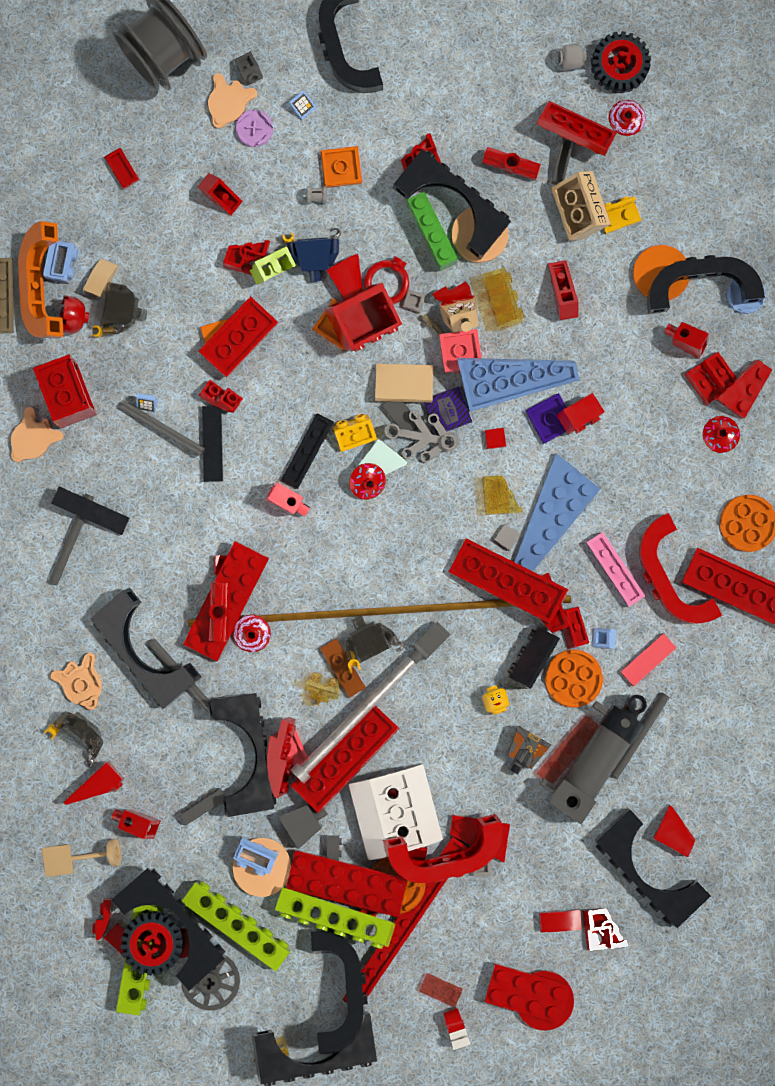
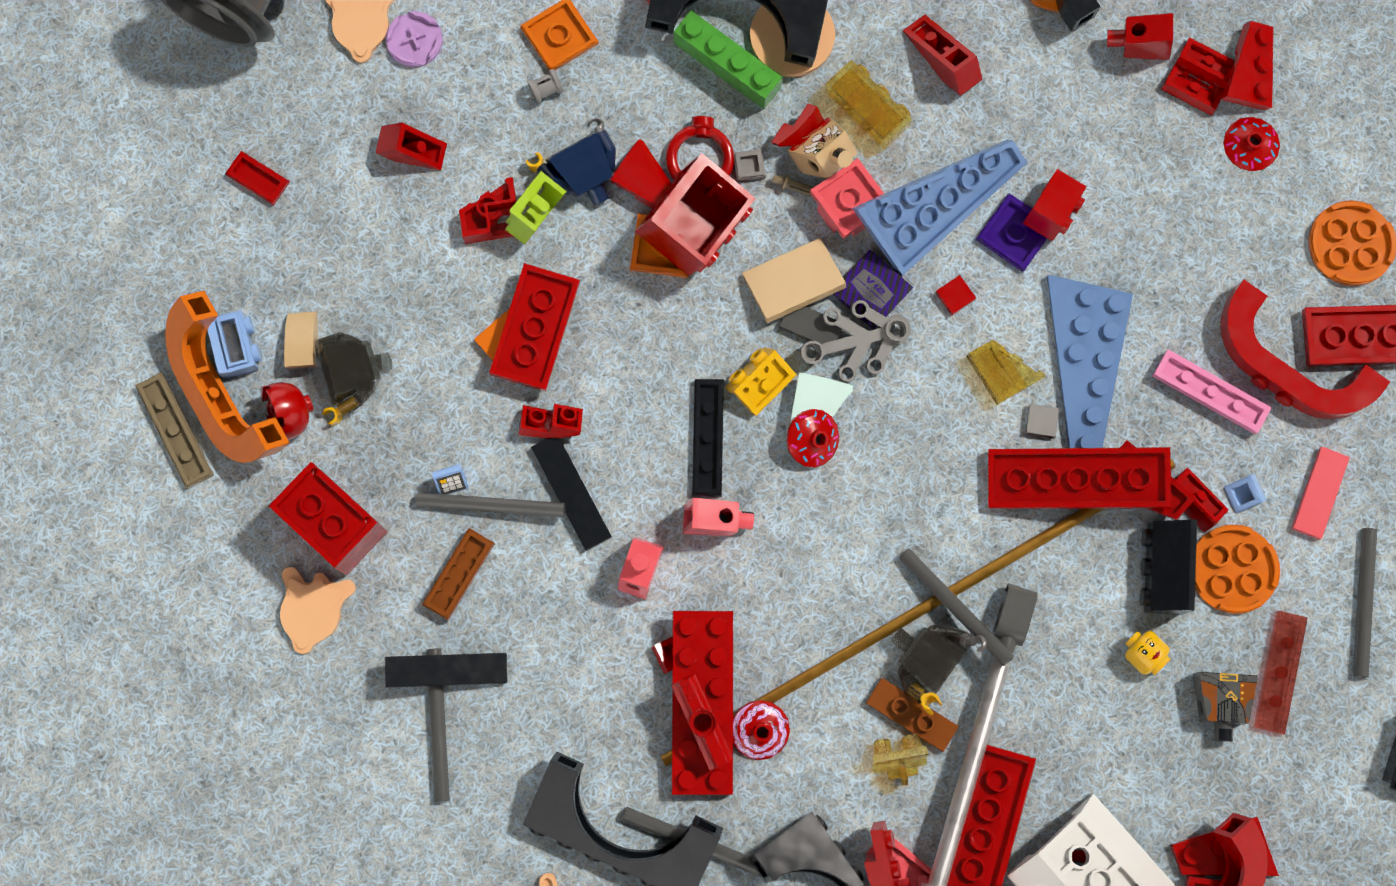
camera: 30 degrees left, 5 degrees down
(124, 459) = (458, 574): none -> dark orange plate
(230, 506) = (640, 567): none -> coral torso
(398, 618) = (955, 606): none -> dark grey piece
(597, 760) = (1331, 667): dark grey piece -> none

